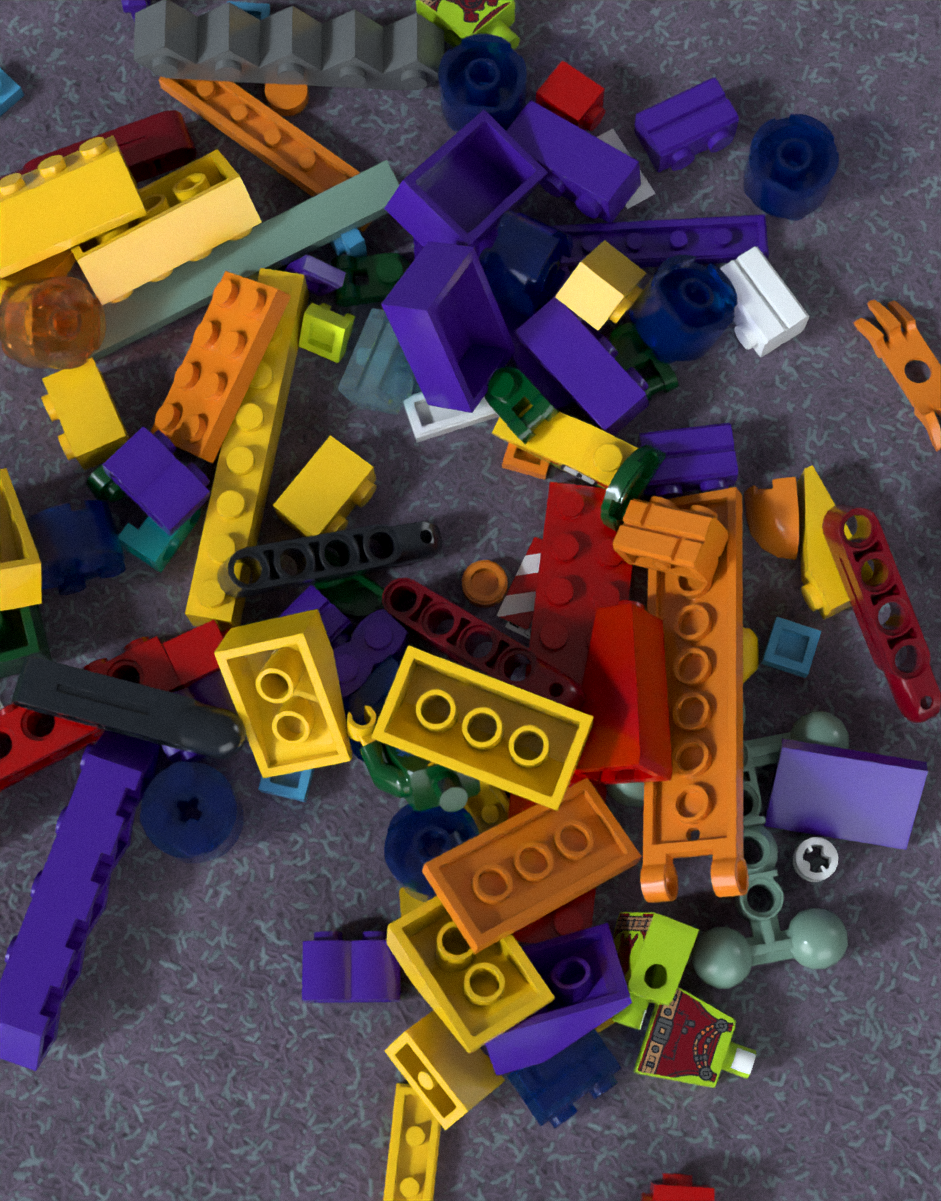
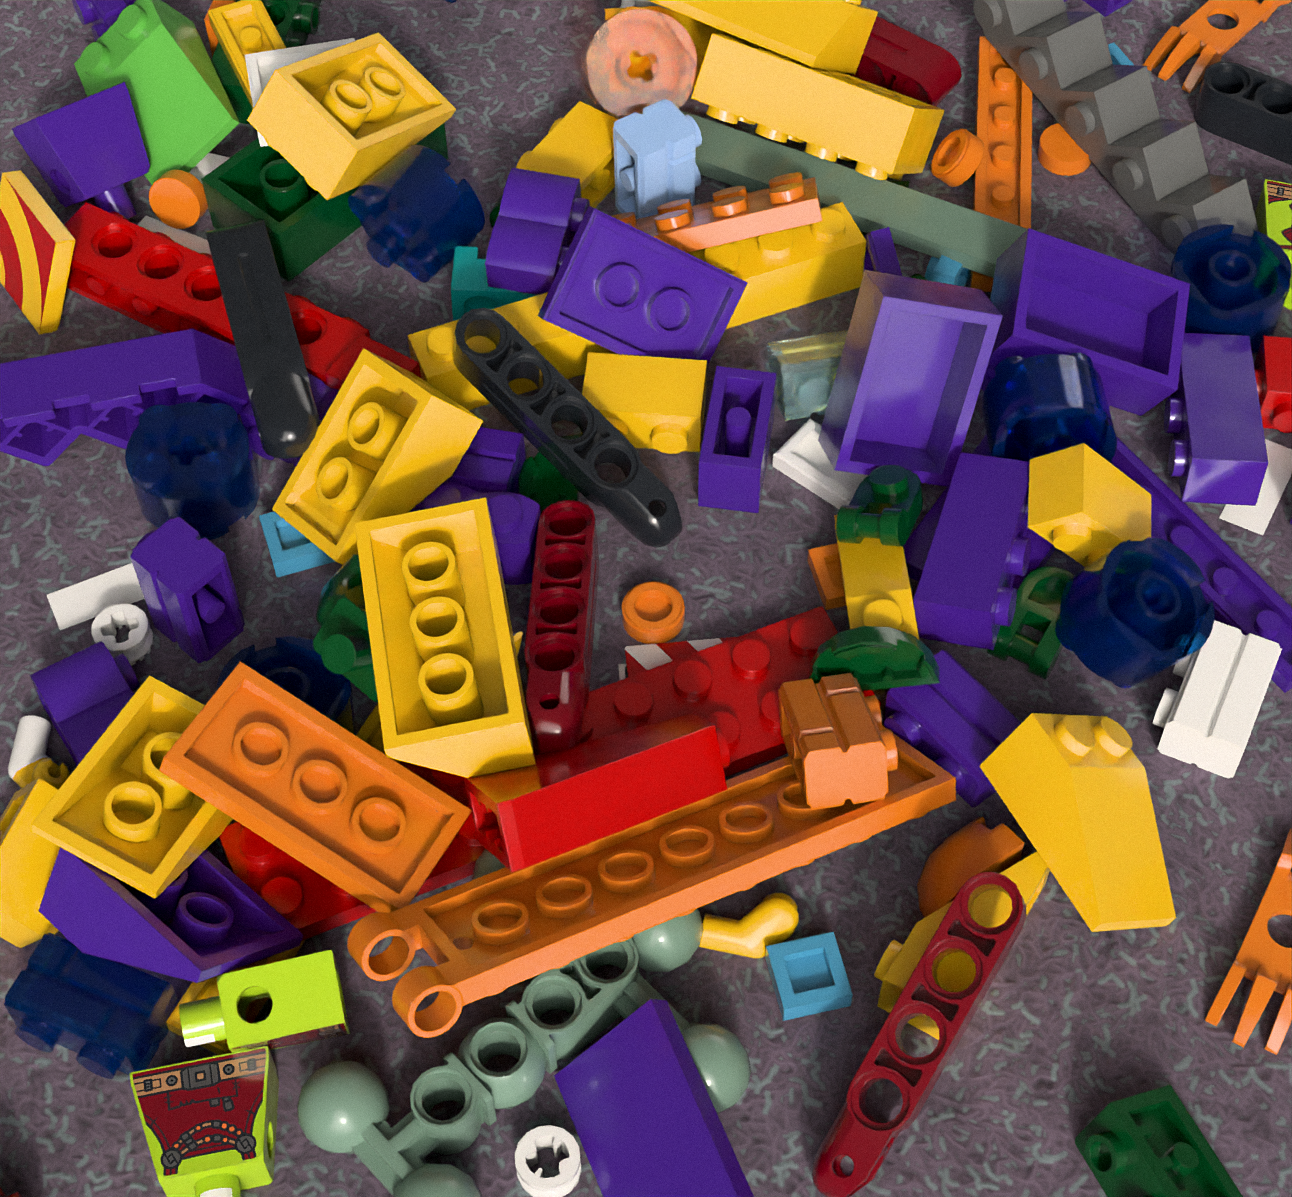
camera: 55 degrees right, 20 degrees down
(139, 364) = (655, 158): none -> light blue brick
(242, 916) = (93, 595): none -> white sticker
(254, 165) = (957, 157): none -> orange tile
(262, 446) = (639, 293): none -> dark purple tile
(296, 937) = (139, 635): none -> white bush
(299, 865) = (188, 589): none -> dark purple brick
(325, 332) = (826, 304): neon yellow tile -> none
(357, 1031) = (28, 754): none -> white arm
(401, 454) = (736, 439): none -> dark purple brick
(799, 432) = (1087, 815): none -> yellow slope

